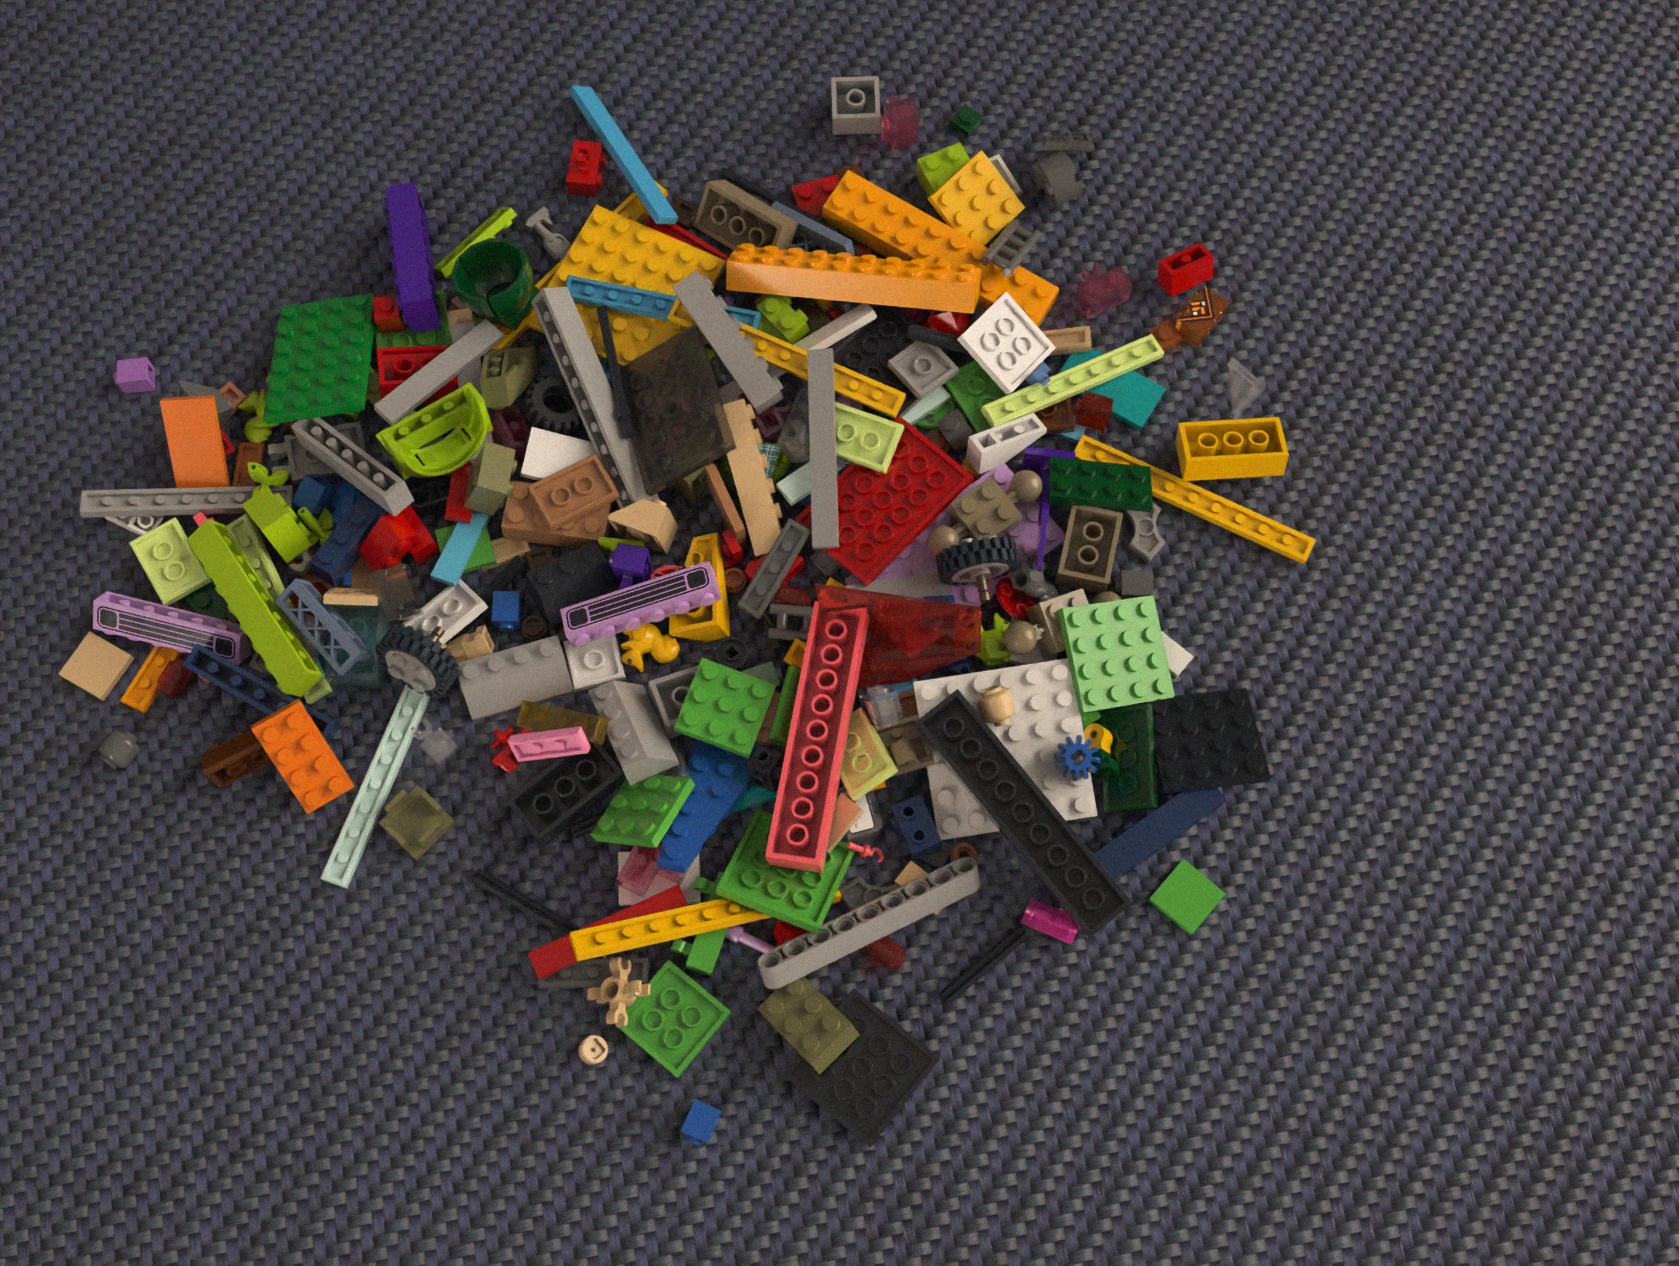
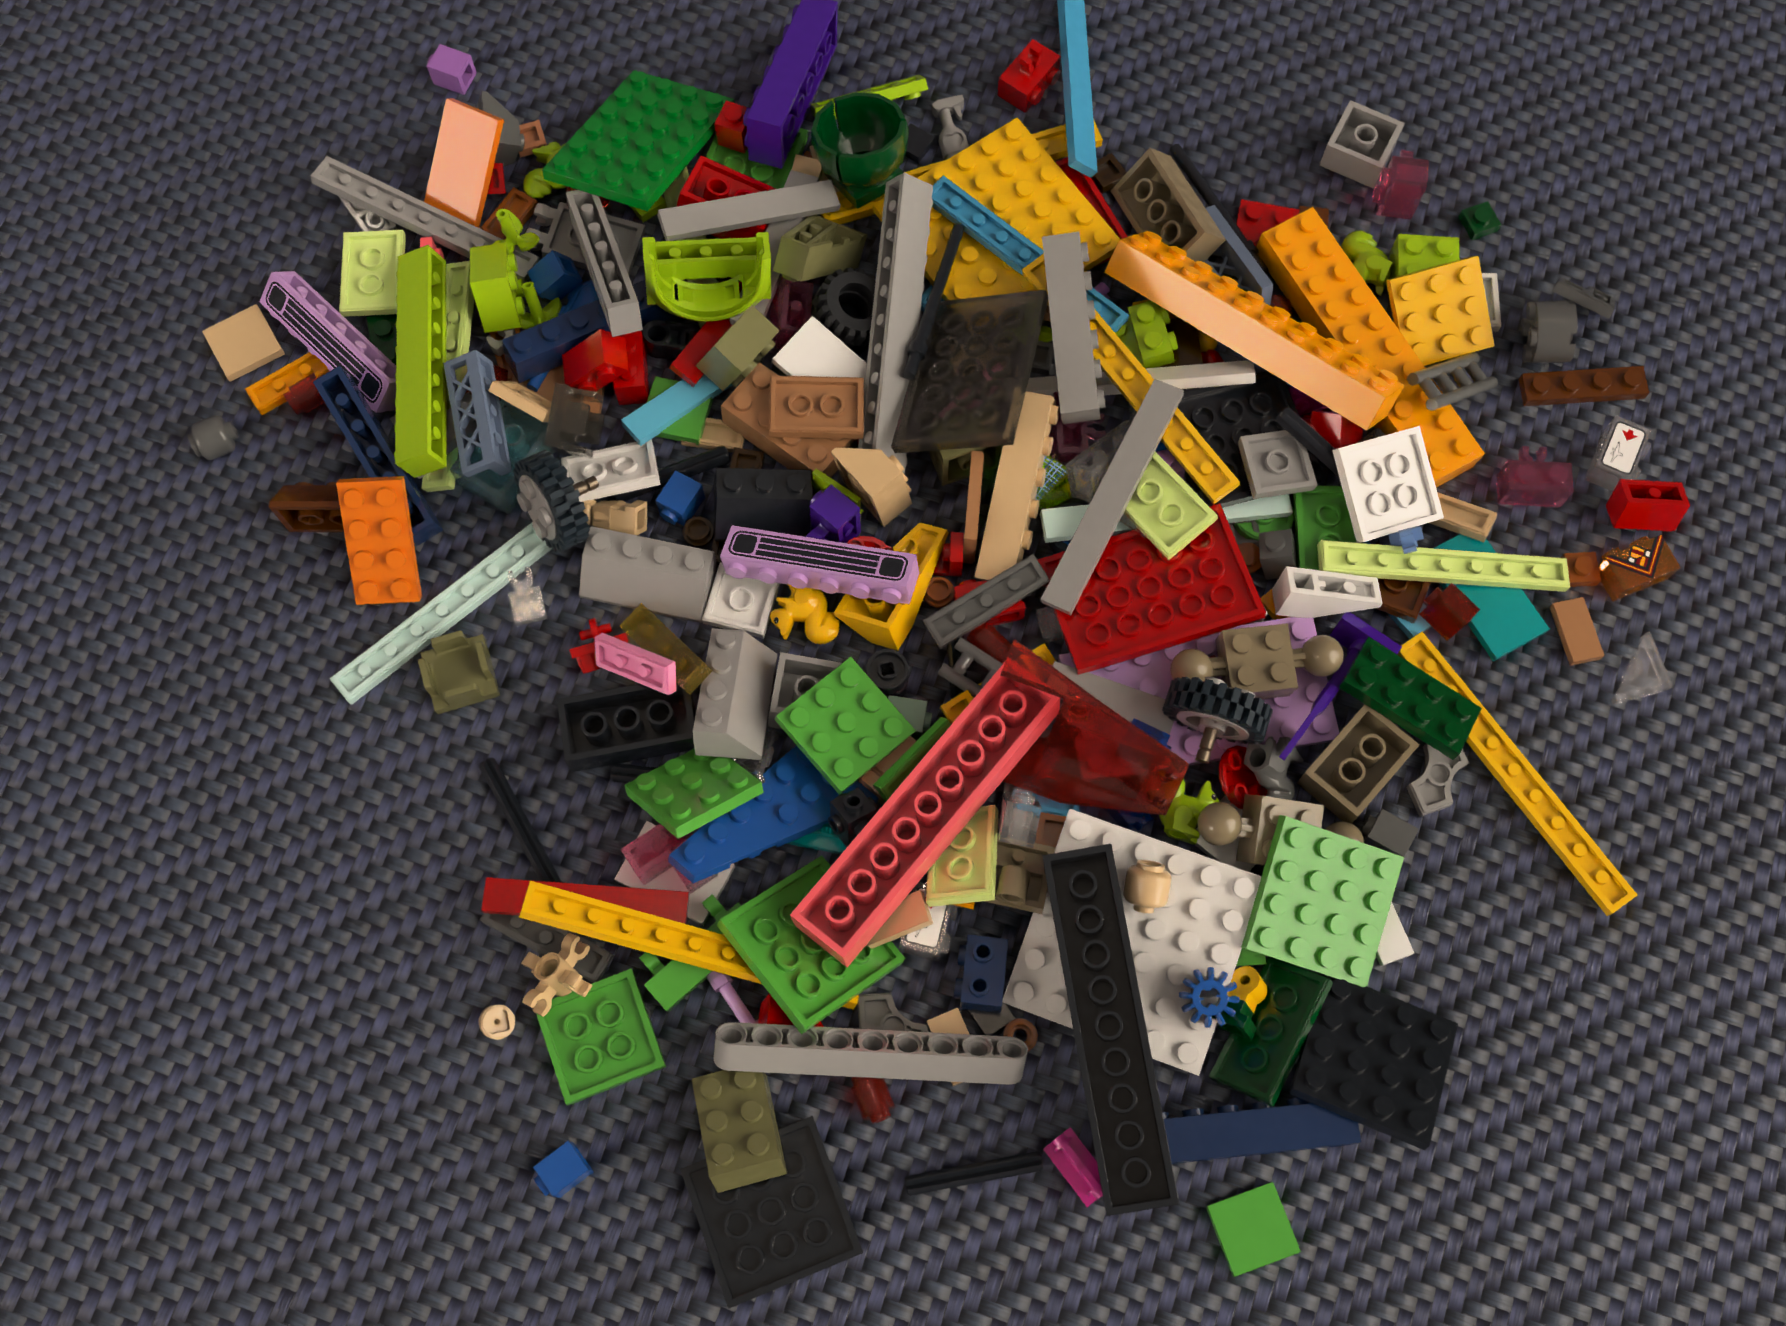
camera: 30 degrees right, 0 degrees up
(865, 850) = (912, 968): coral hand -> none
(905, 187) = (1368, 259): none -> lime animal
(1099, 206) = (1583, 386): none -> reddish brown plate
(1148, 242) = (1618, 453): none -> brick
(1184, 381) = (1576, 631): none -> medium nougat tile
(1231, 449) = (1591, 737): yellow brick -> none

